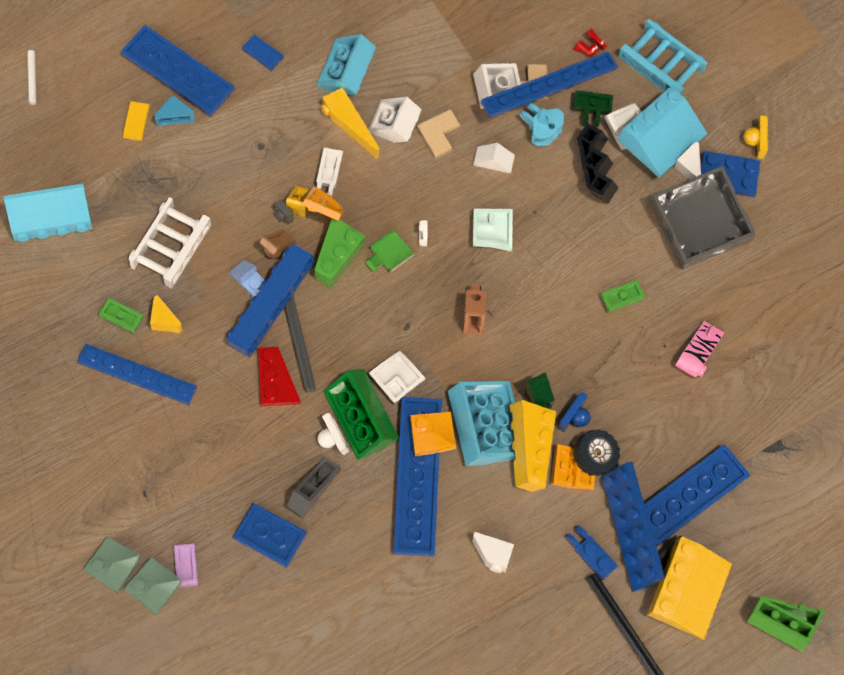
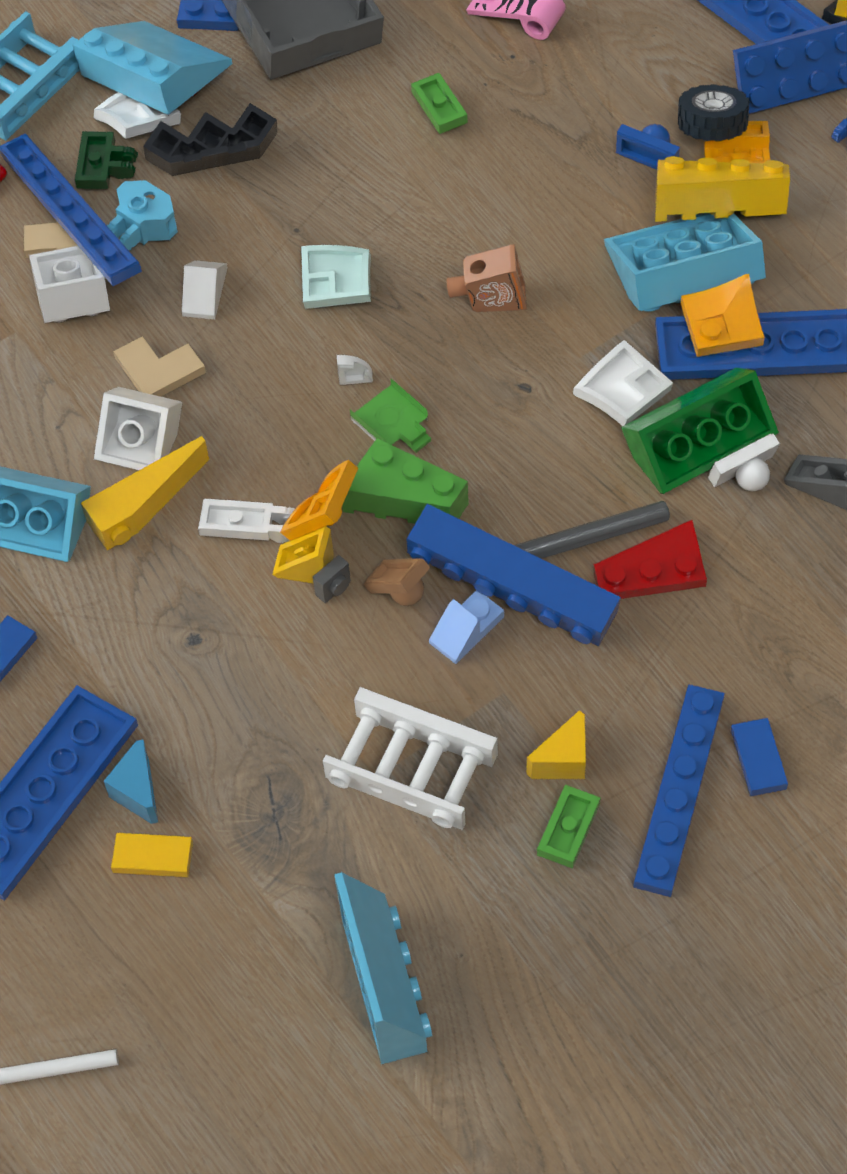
camera: 85 degrees left, 10 degrees down
(149, 416) = (759, 757): none -> blue tile
(539, 391) = (626, 188): dark green slope -> none
(689, 162) = (205, 28): white slope -> none

